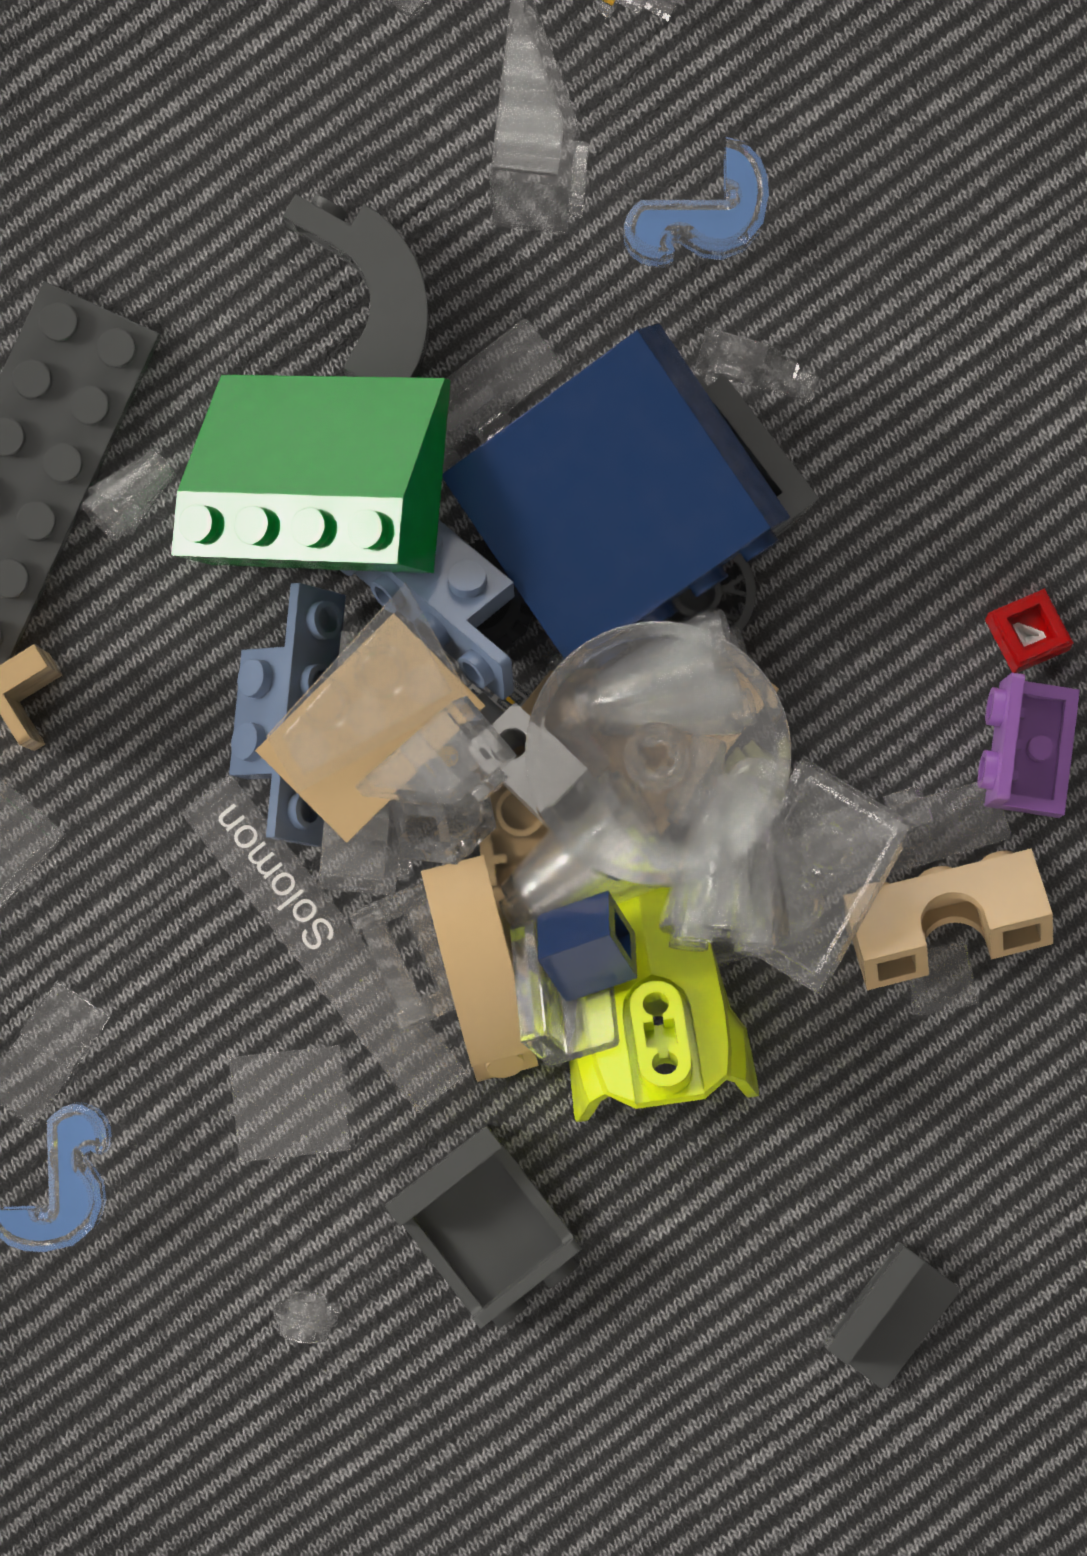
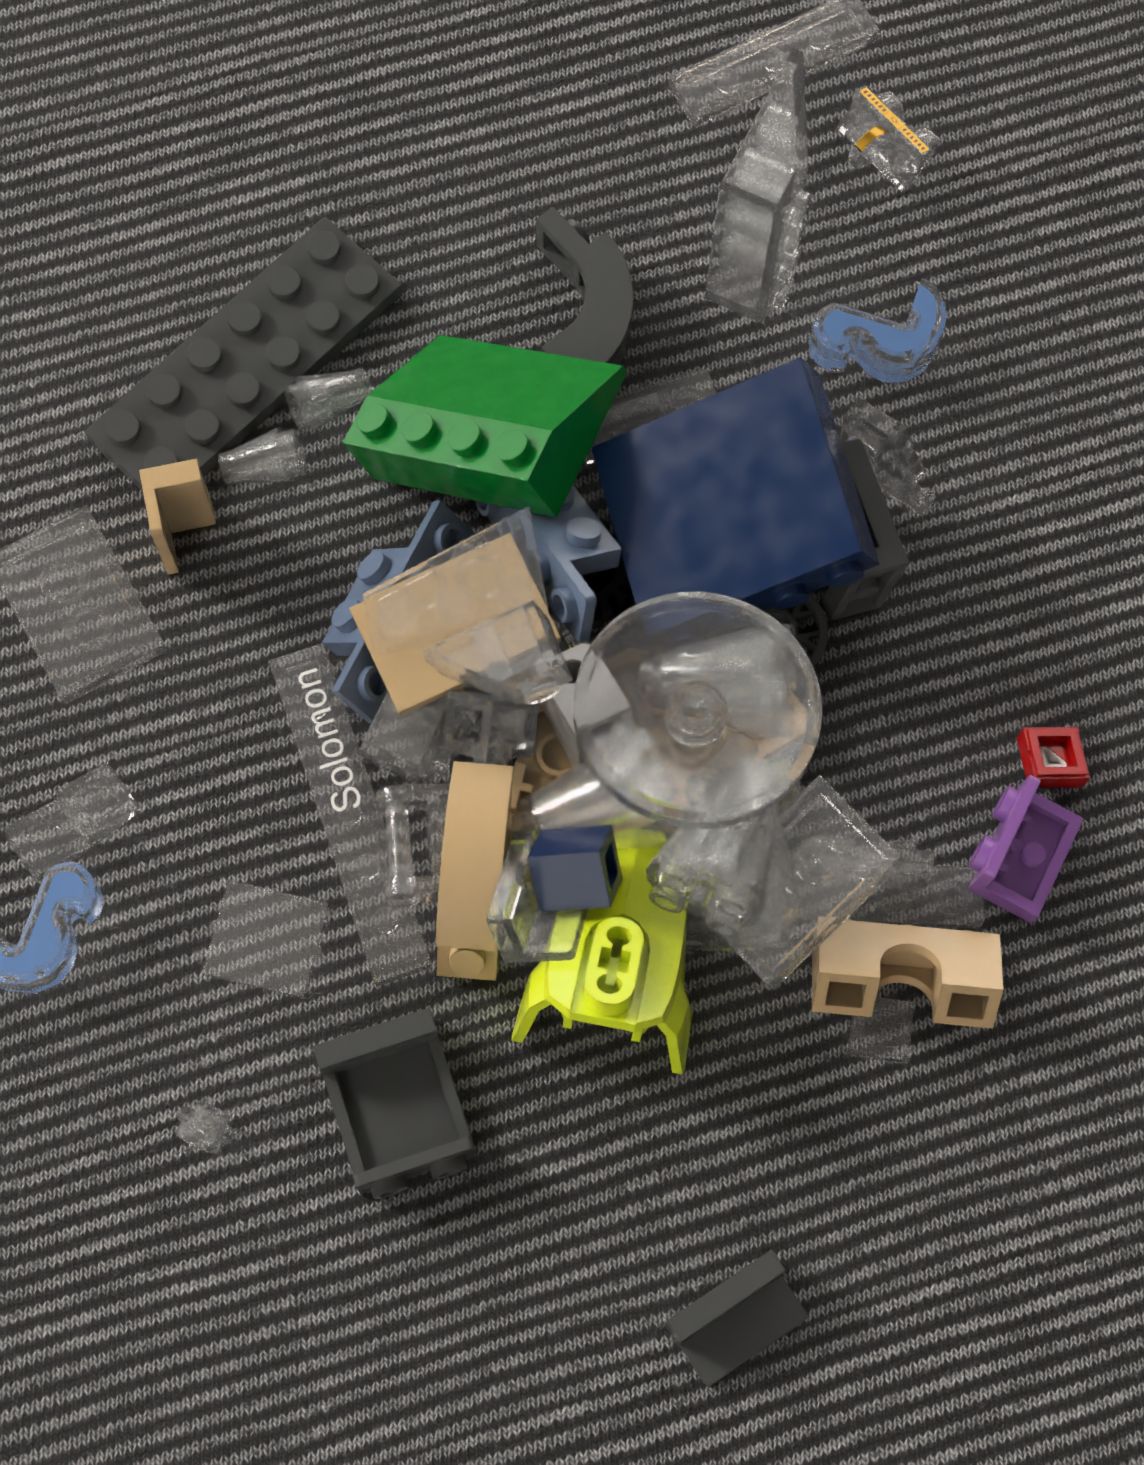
camera: 20 degrees right, 15 degrees down
(91, 589) = (268, 458): none -> clear cone

